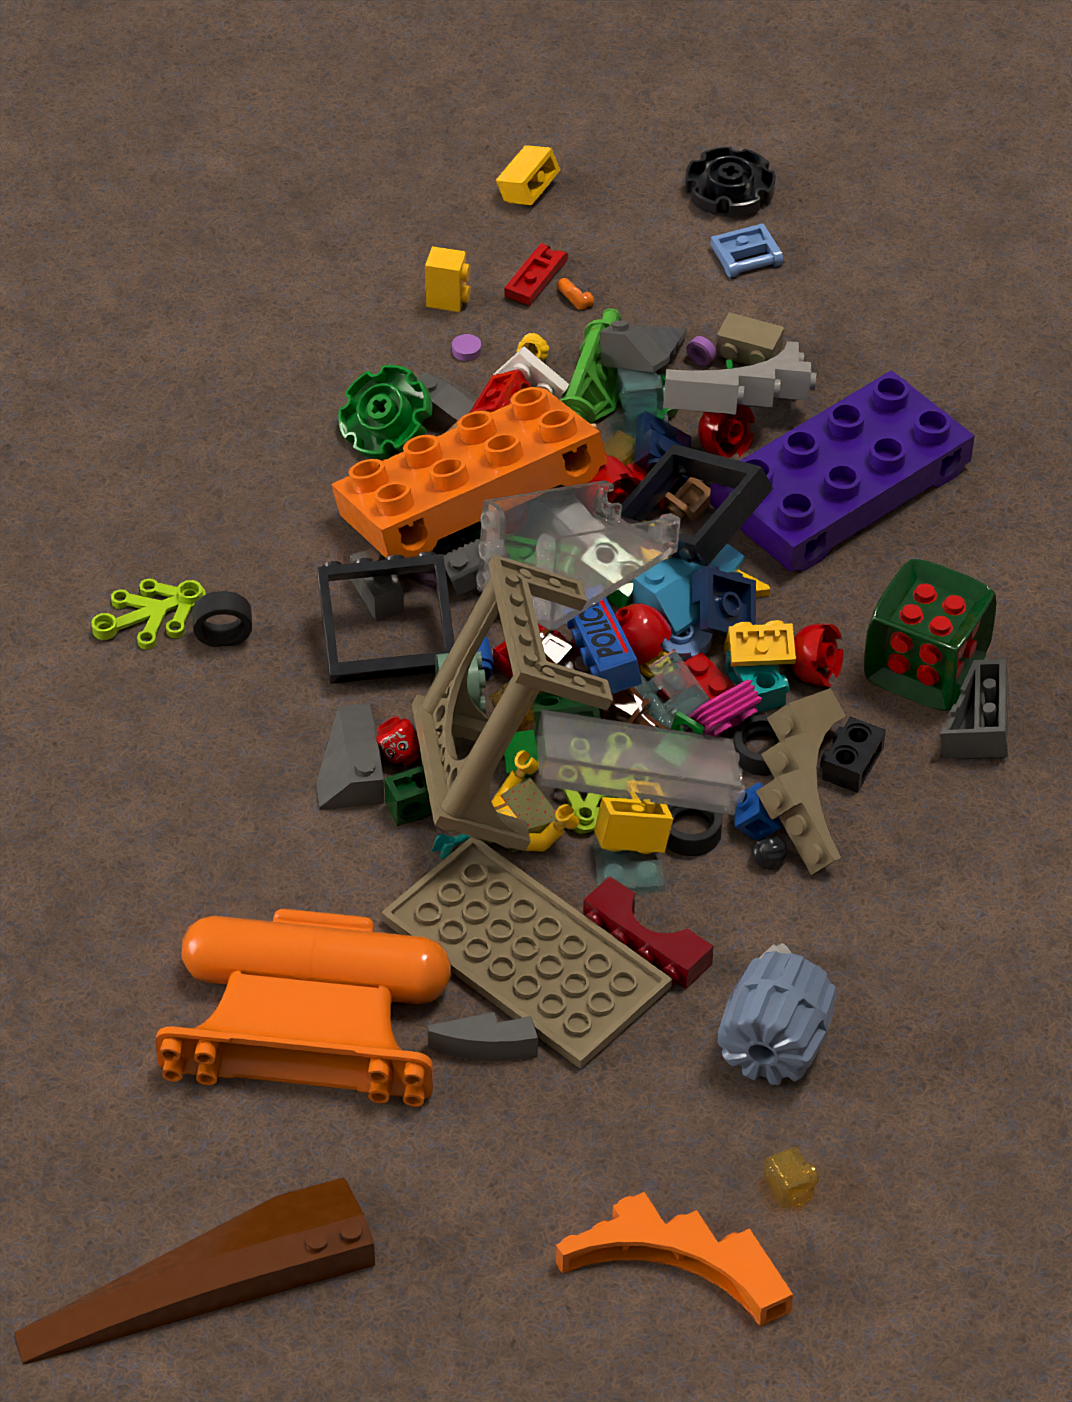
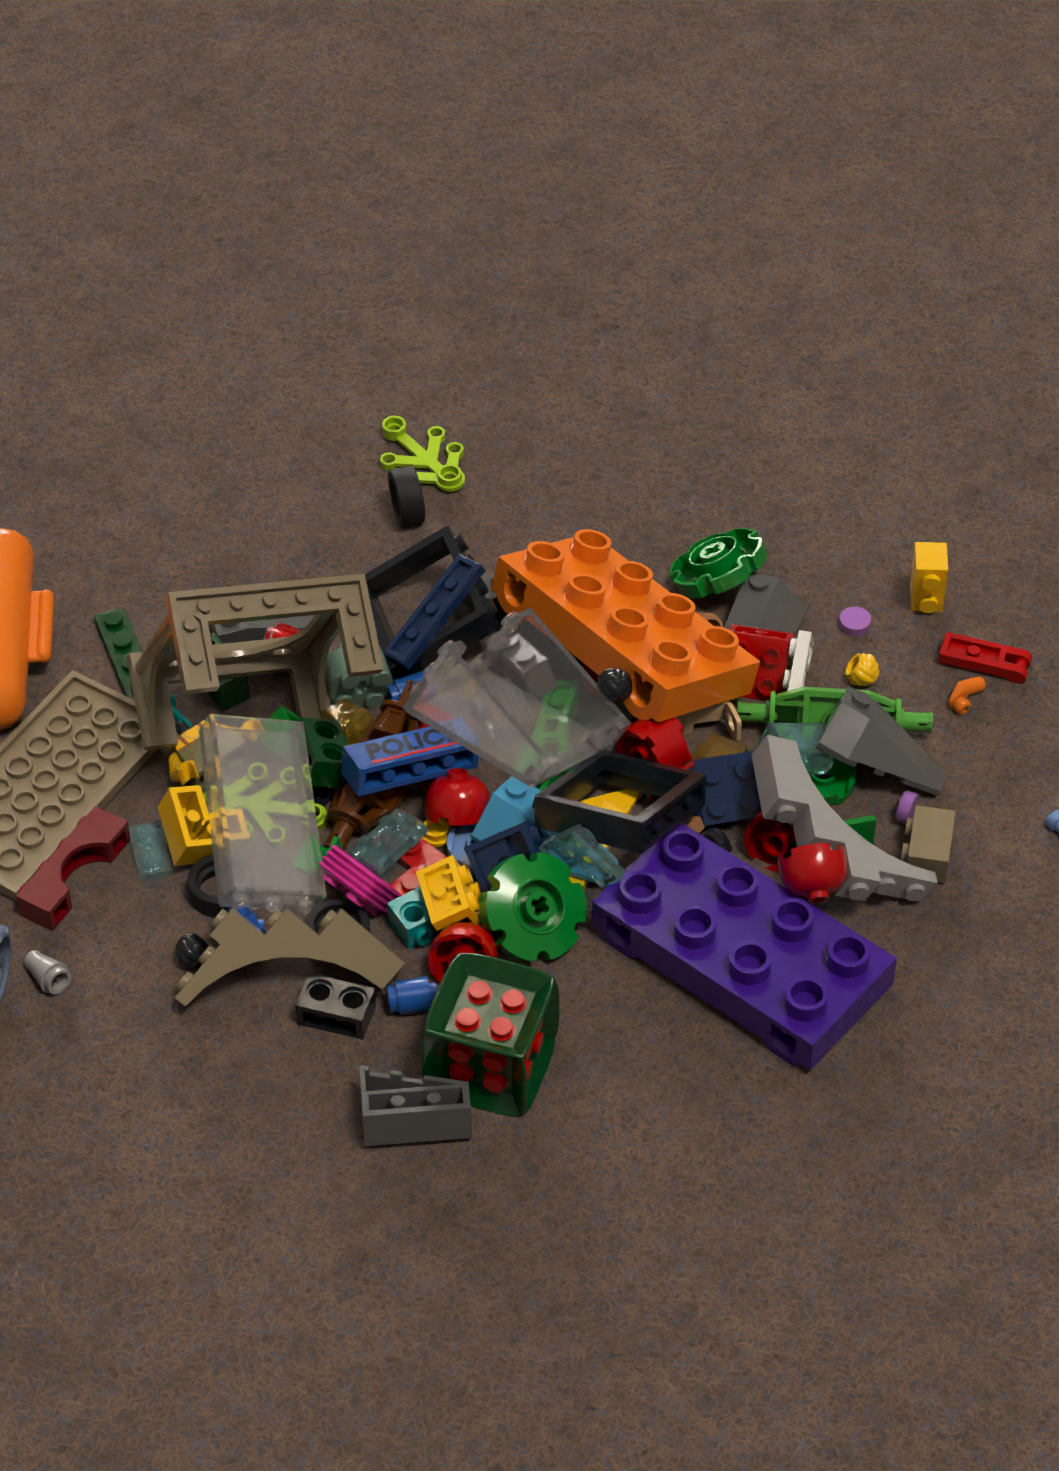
camera: 80 degrees right, 0 degrees up
(363, 873) = (119, 642): none -> dark green plate
(416, 597) = (434, 611): none -> dark blue tile
(568, 473) = (615, 684): none -> black piece
(753, 529) = (580, 848): none -> clear light blue plate
(781, 592) = (554, 900): none -> green piece
(800, 395) = (813, 871): none -> red cylinder
(851, 698) = (411, 995): none -> blue brick

